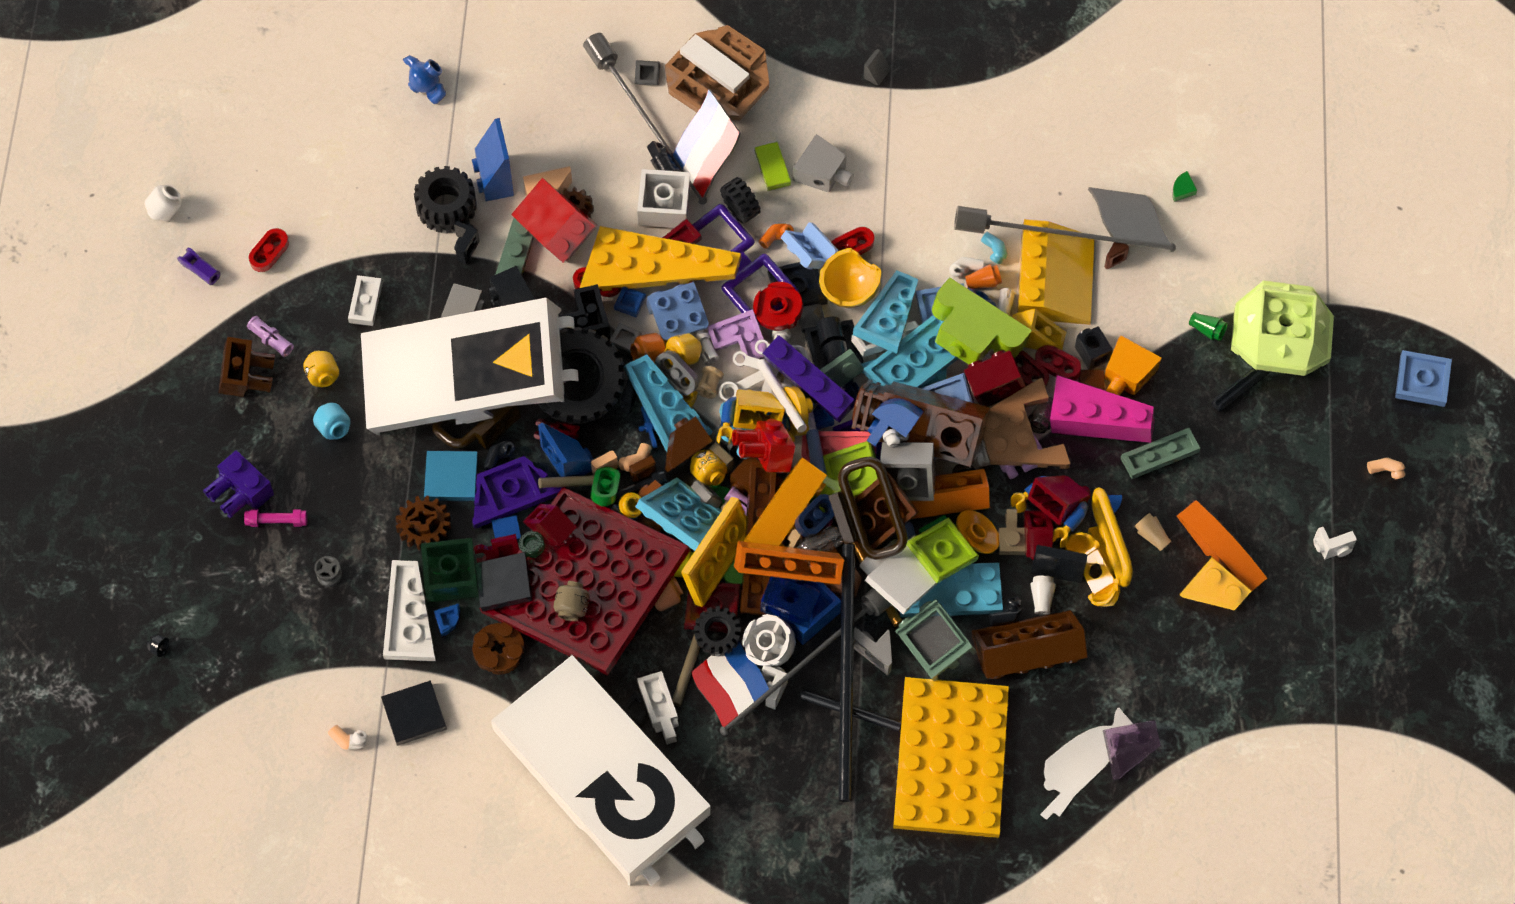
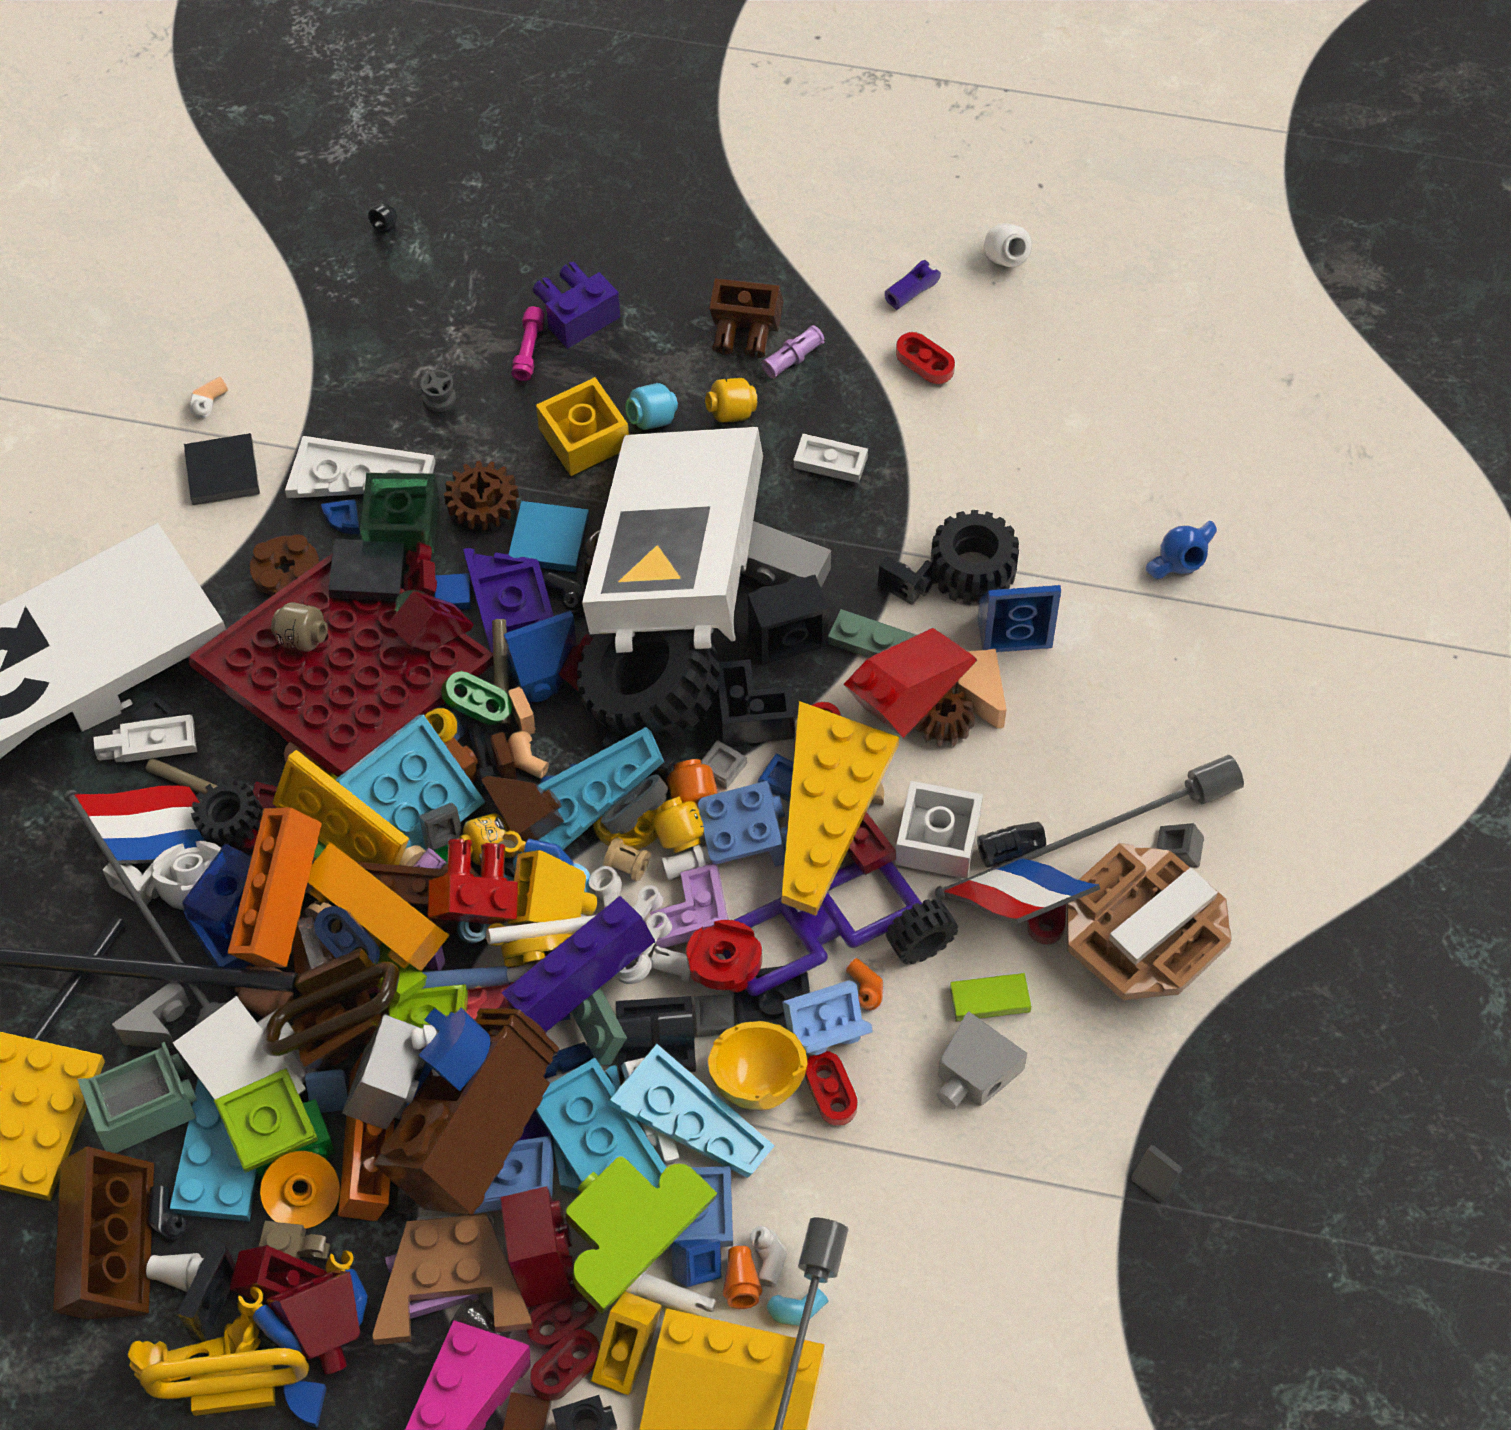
camera: 100 degrees right, 5 degrees down
(358, 460) = (582, 426): none -> yellow brick

